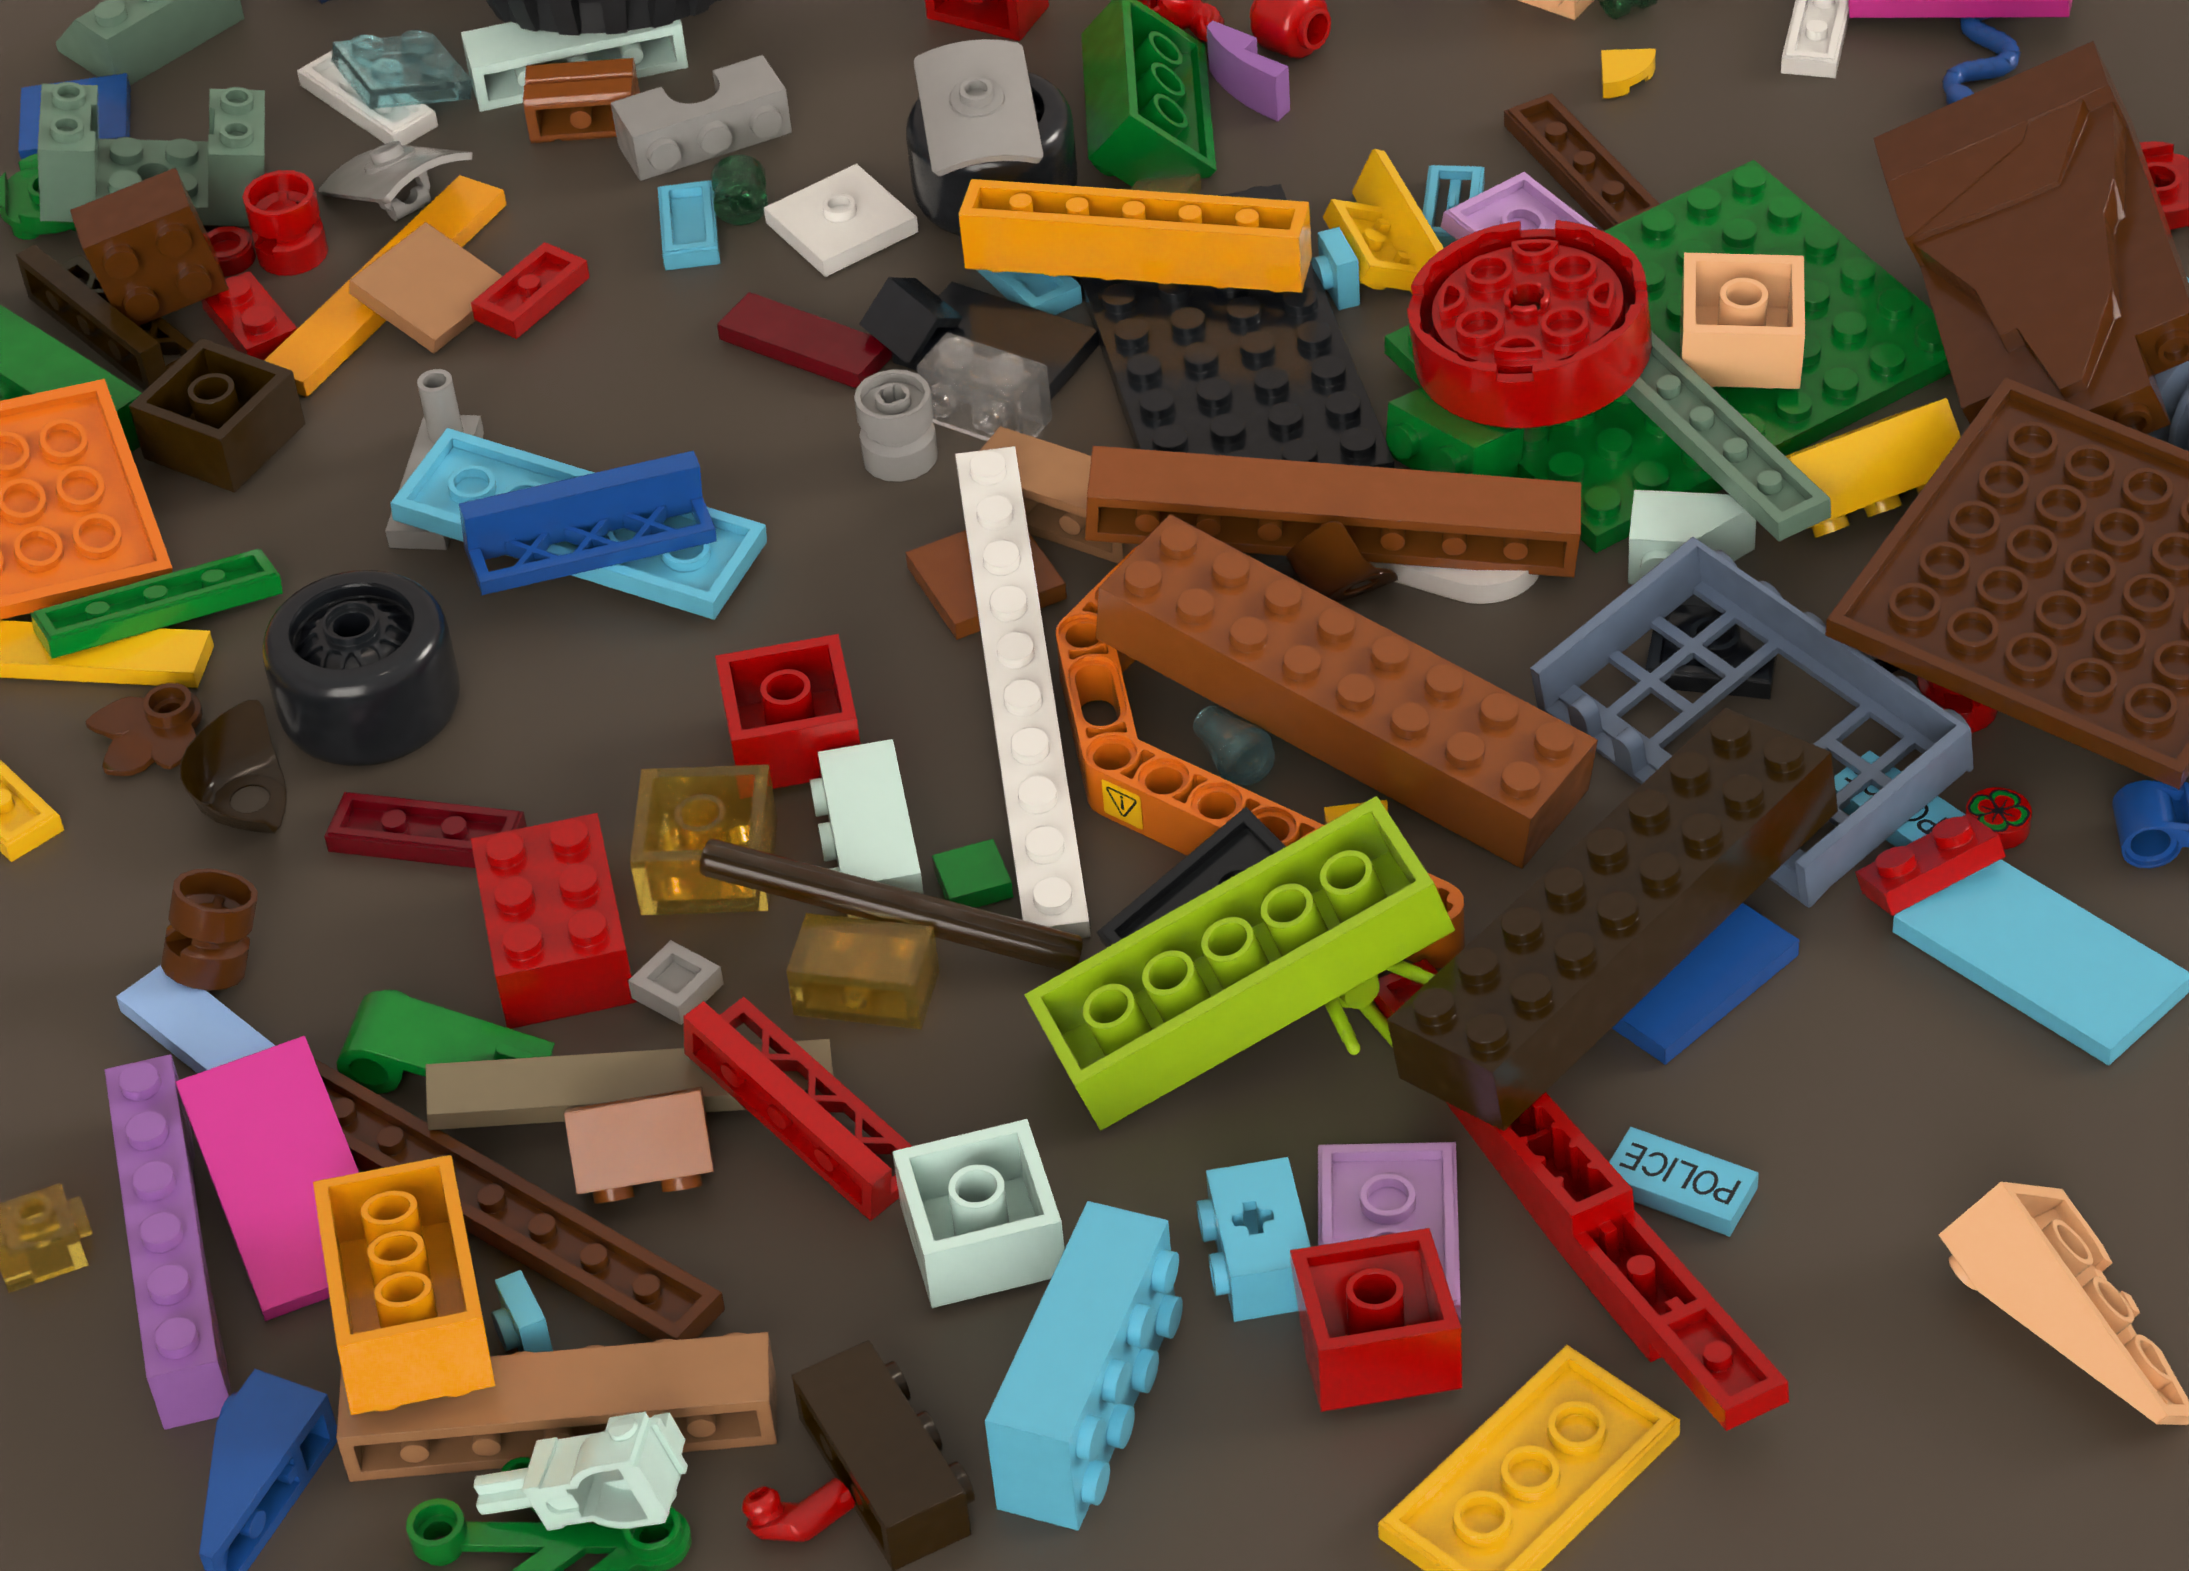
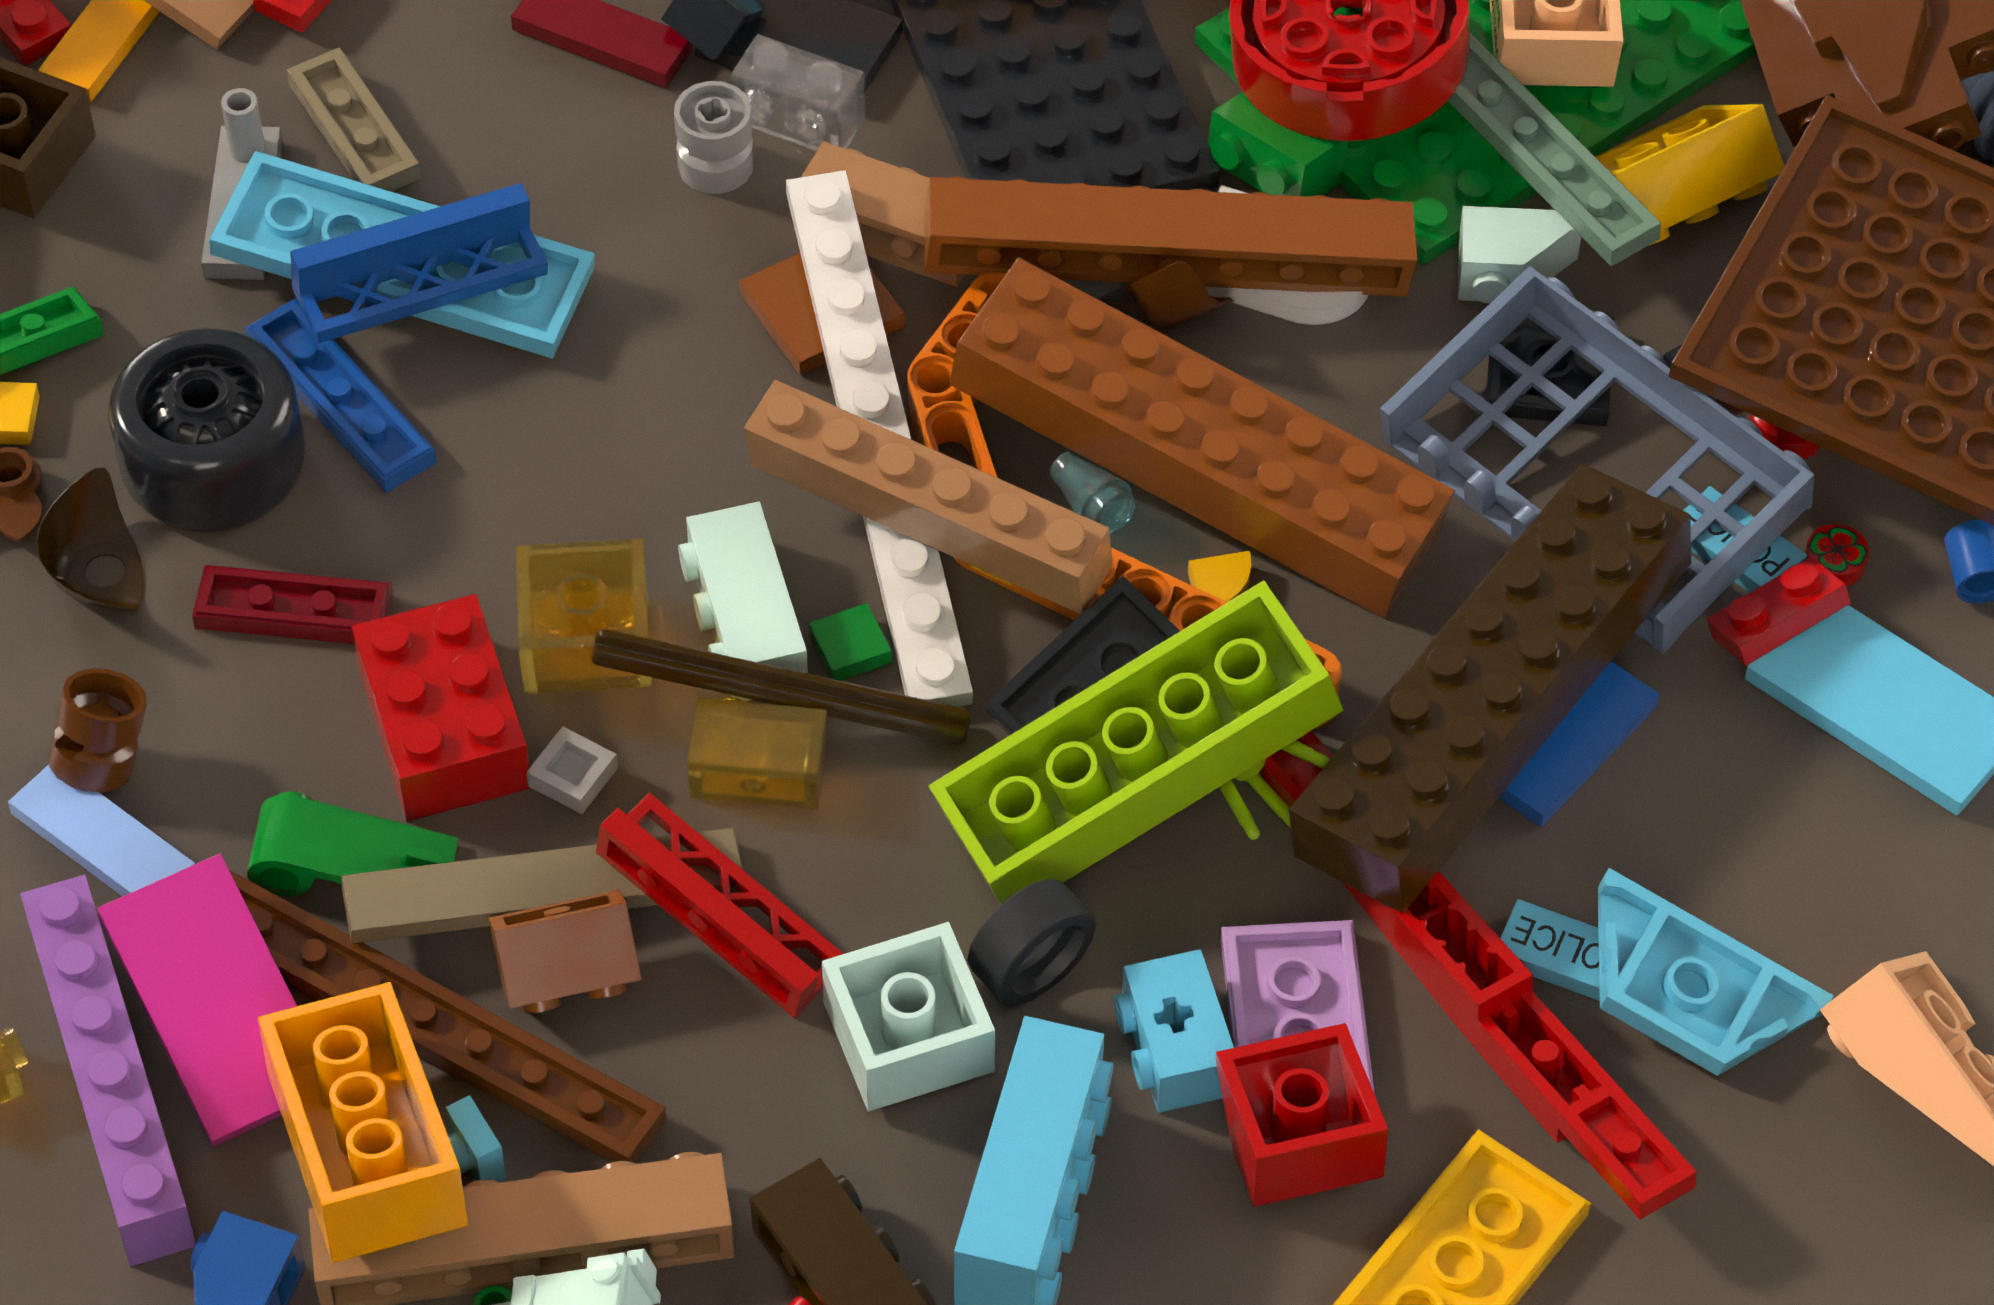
camera: 10 degrees left, 10 degrees up
(506, 653) = (345, 399): none -> blue tile
(551, 410) = (353, 122): none -> dark tan plate
(788, 706) = (648, 467): red brick -> none
(1059, 731) = (929, 496): none -> medium nougat brick
(1099, 1122) = (1031, 942): none -> black tyre
(1809, 1209) = (1692, 981): none -> medium azure wing

